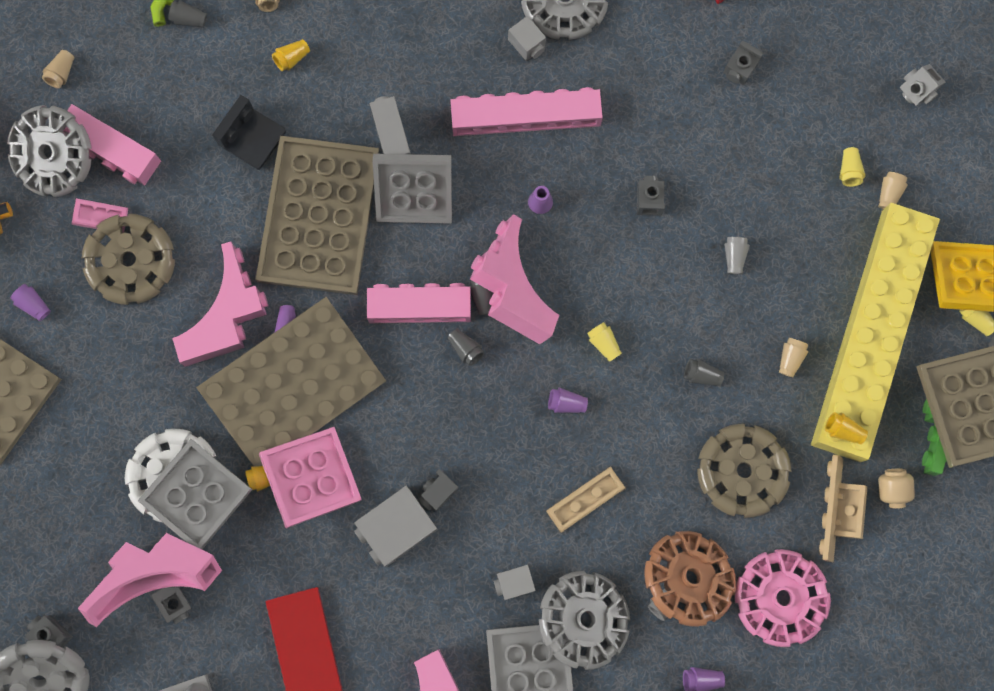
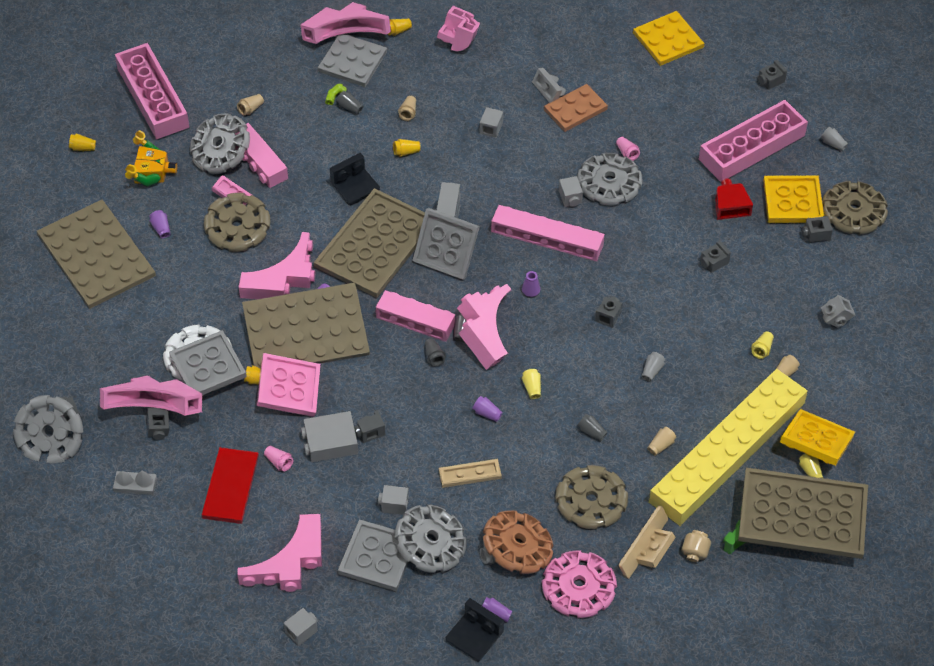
camera: 25 degrees right, 25 degrees down
(346, 584) = (279, 458): none -> bright pink cone
(844, 428) = (671, 483): yellow cone -> none

